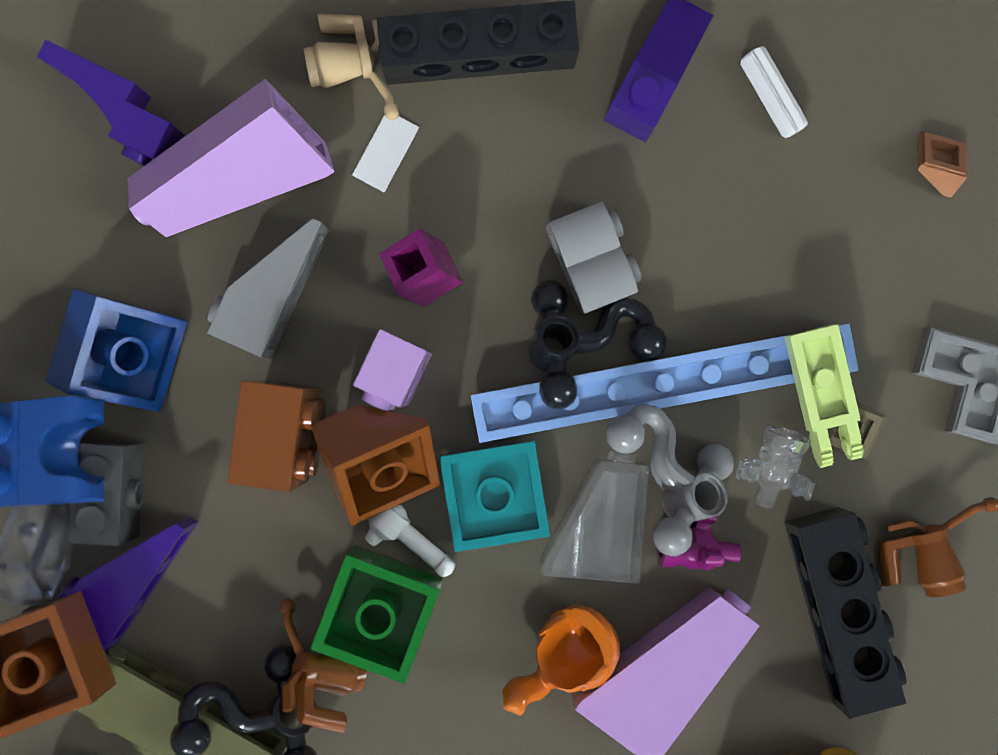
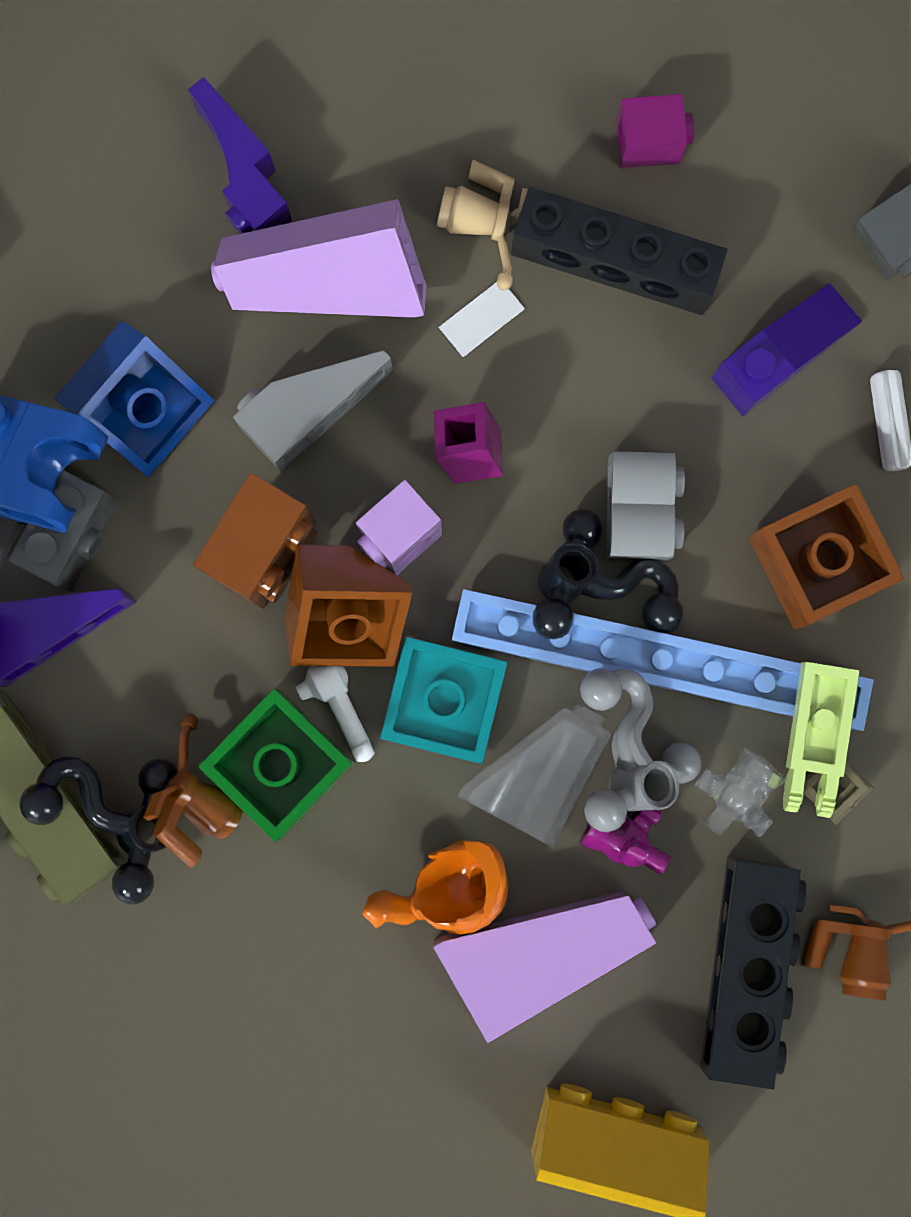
camera: 30 degrees right, 5 degrees down
(769, 237) = (825, 557): none -> dark orange brick

